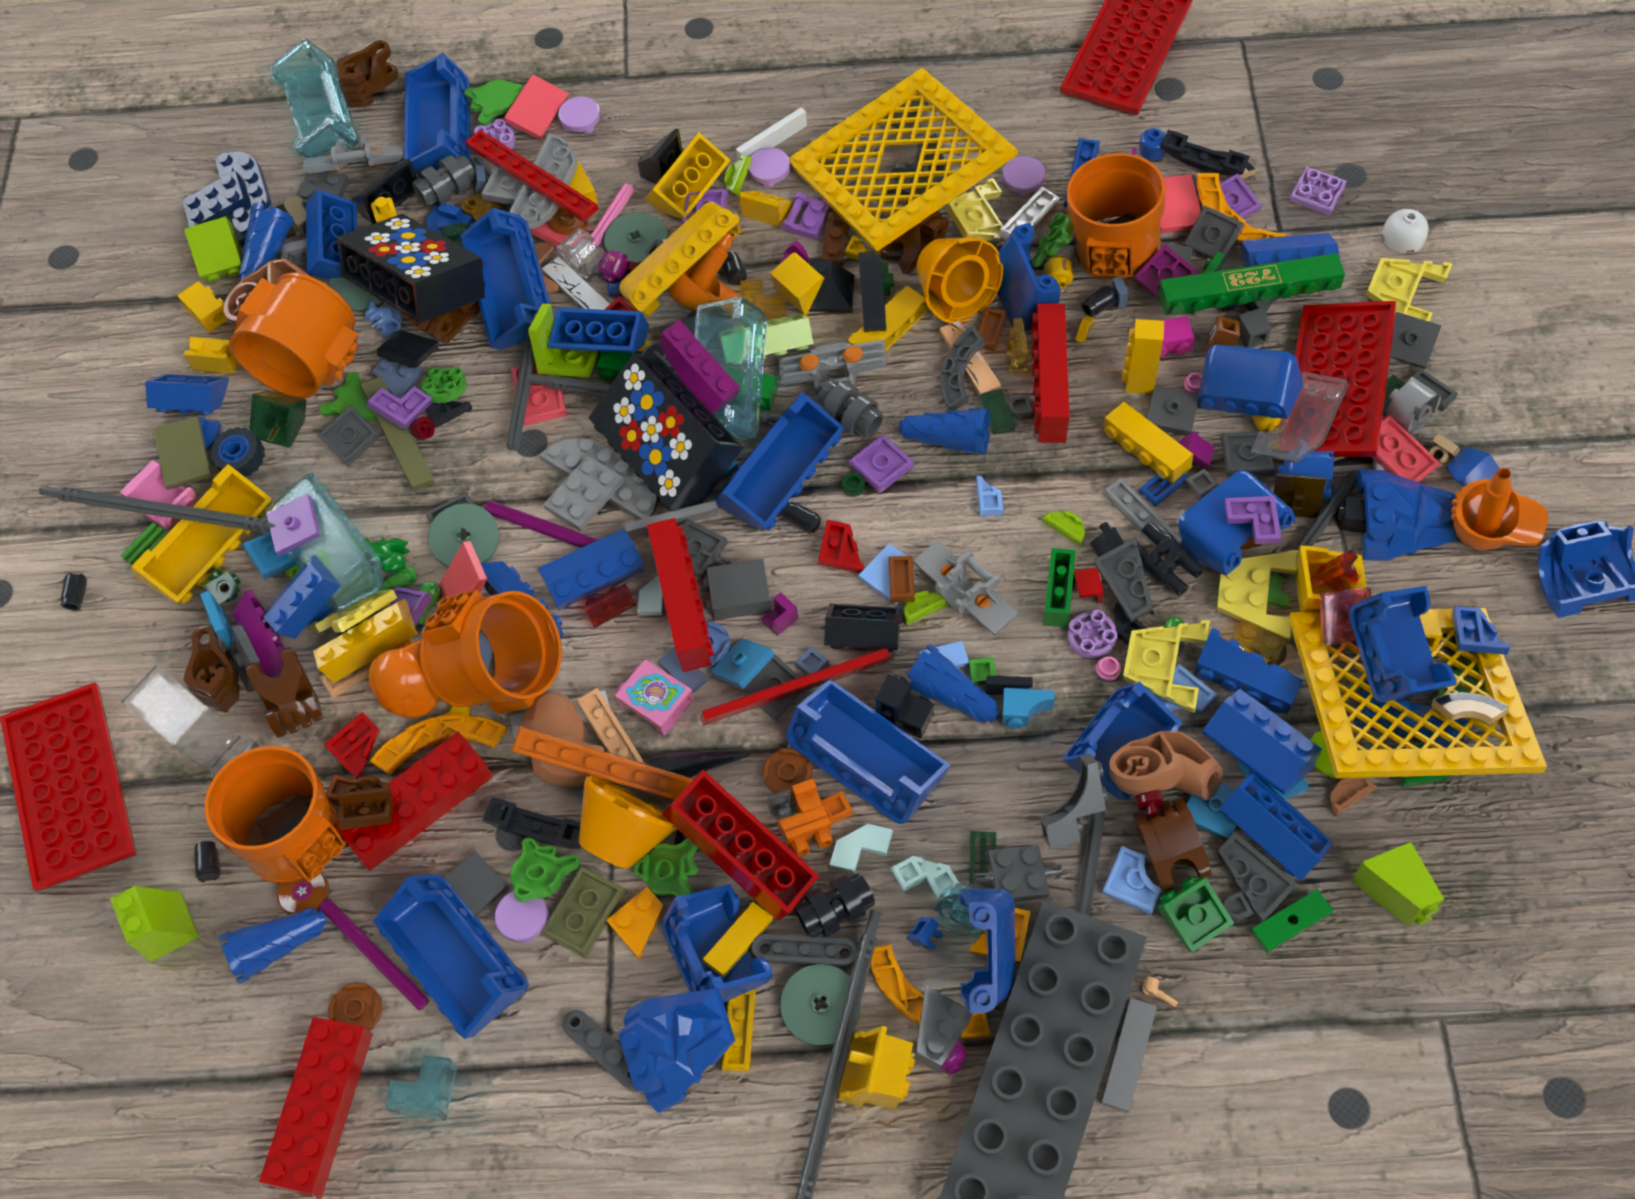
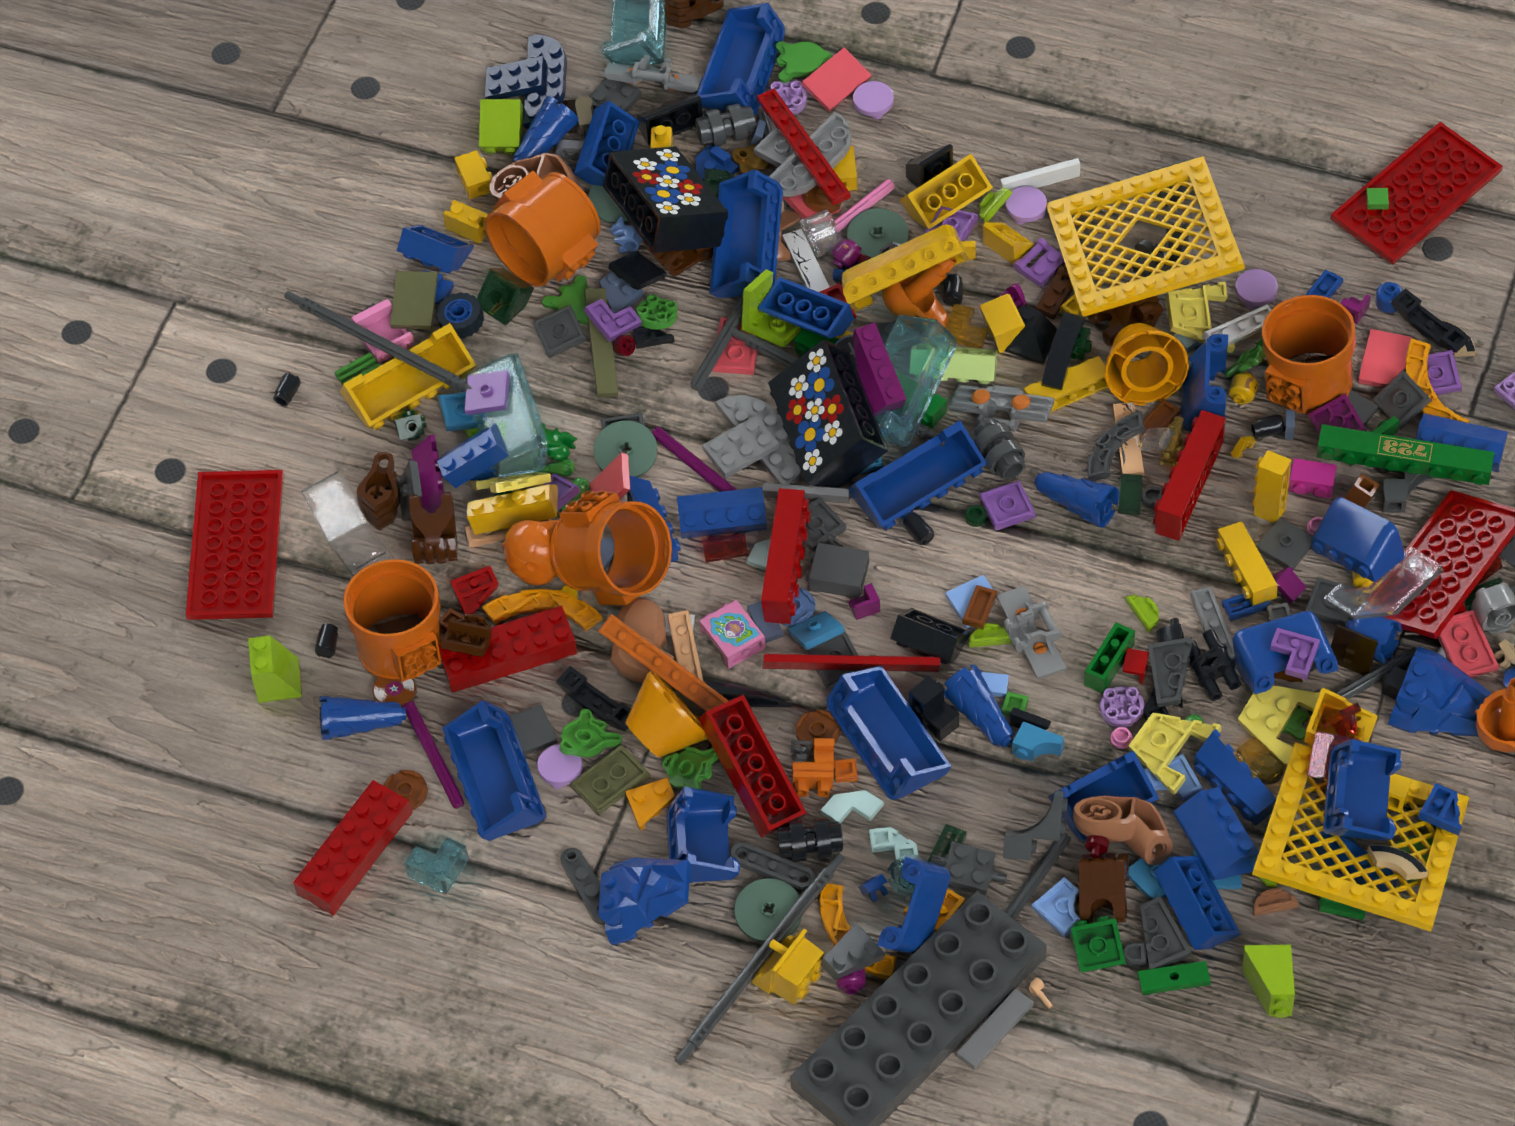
camera: 20 degrees right, 5 degrees down
(218, 618) = (398, 450): dark azure plate -> none
(737, 940) = (723, 840): yellow tile -> none
(741, 1018) = (696, 909): yellow tile -> none
(811, 662) = (875, 648): sand blue tile -> none
(839, 548) = (939, 564): red wing -> none
(989, 499) = (1087, 567): light blue tile -> none
(1003, 347) = (1156, 439): none -> clear tile
(1097, 59) = (1377, 198): none -> bright green tile

